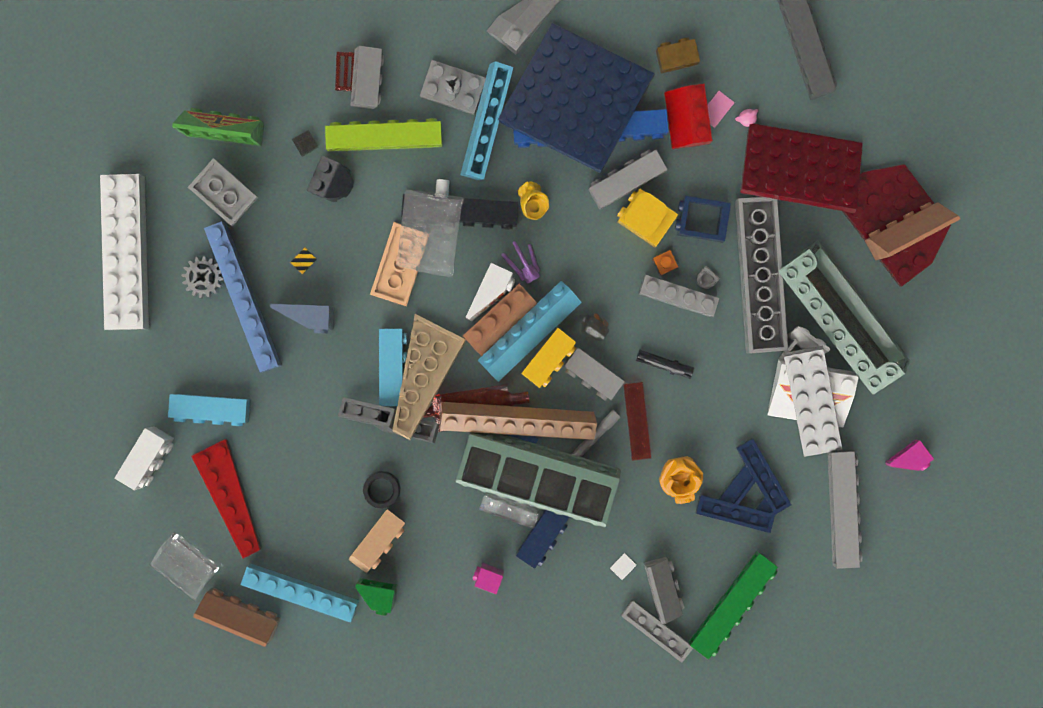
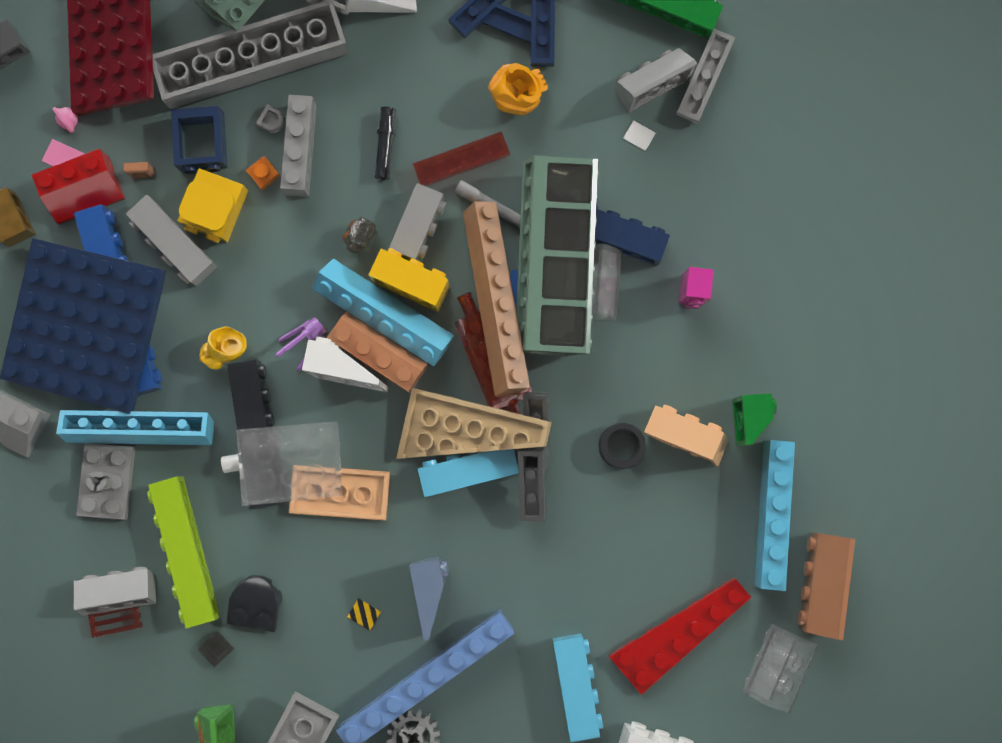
camera: 105 degrees left, 5 degrees down
(690, 166) = (139, 170): none -> nougat tile

